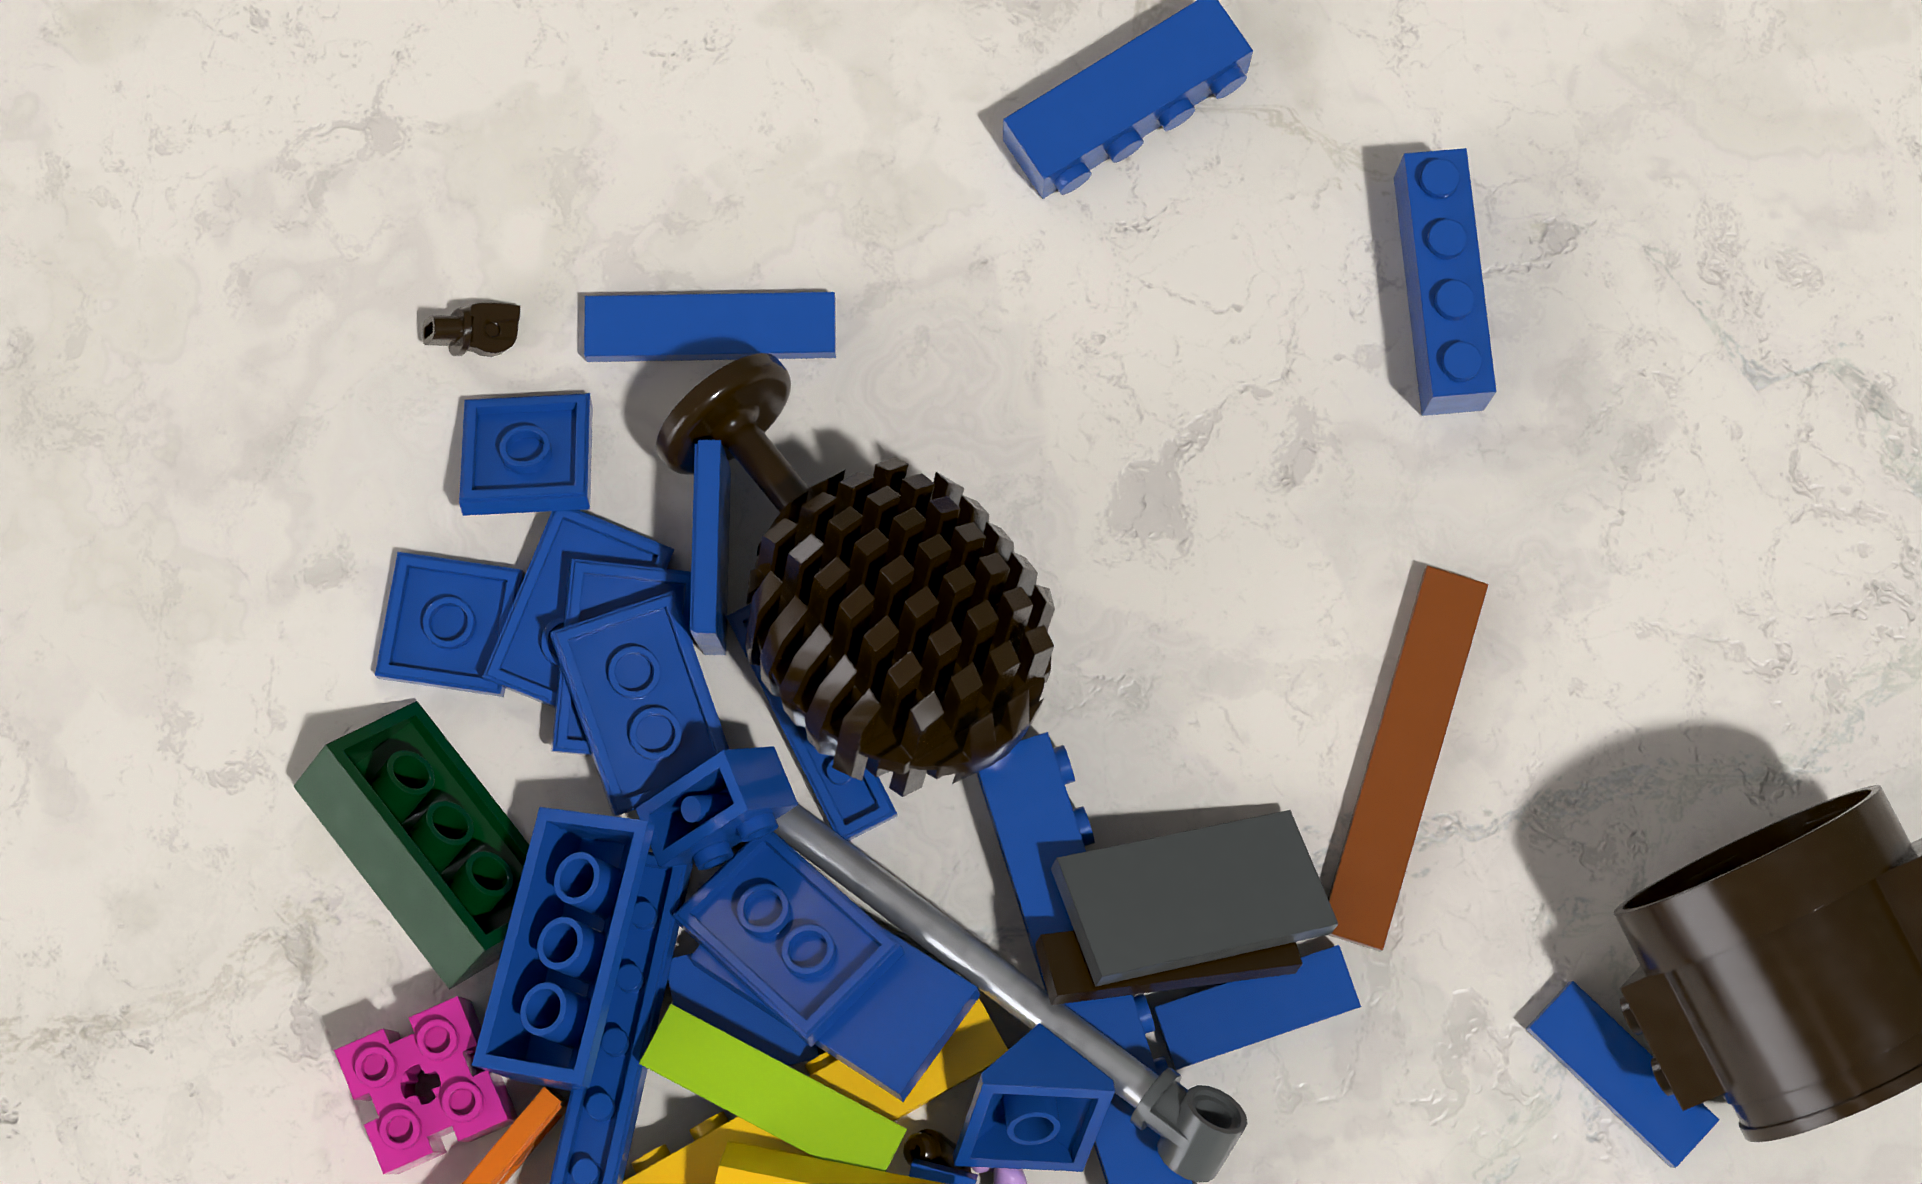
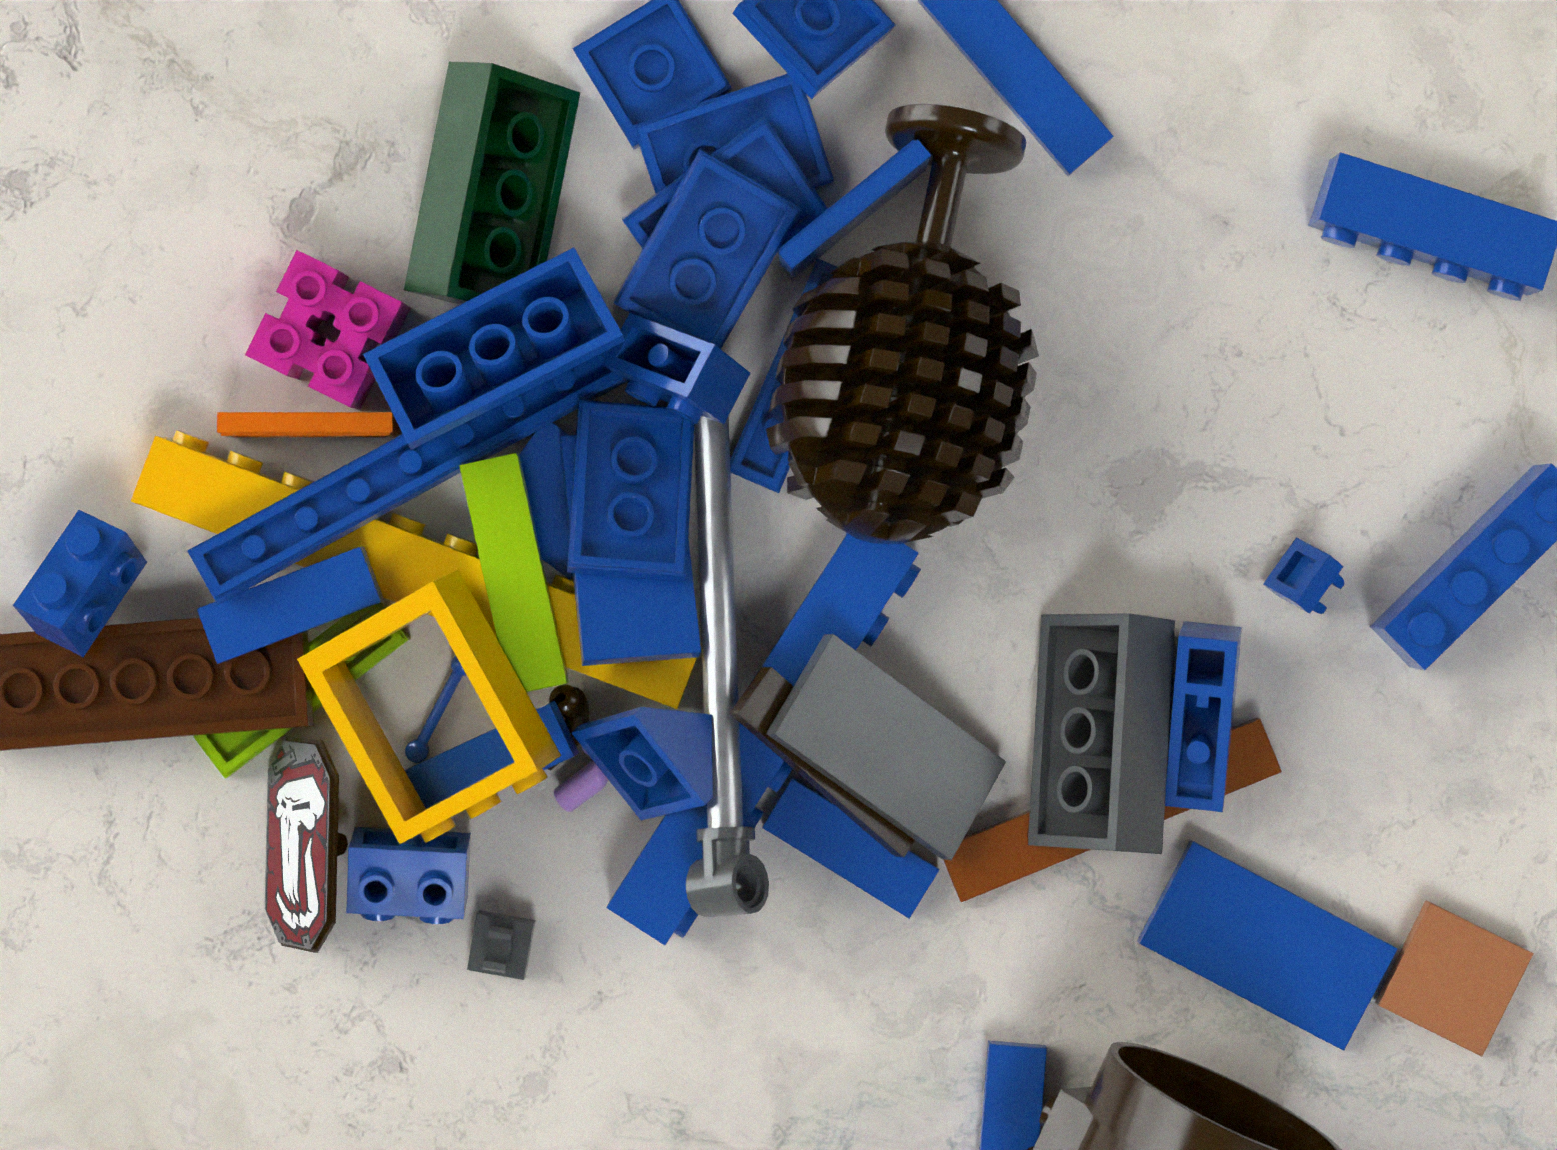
camera: 50 degrees right, 10 degrees up
(1331, 706) = (1101, 732): none -> dark grey slope
(1334, 431) = (1304, 576): none -> blue tile
(1387, 609) = (1202, 715): none -> blue slope
(1630, 718) = (1267, 945): none -> blue tile
(1785, 584) = (1453, 978): none -> nougat tile

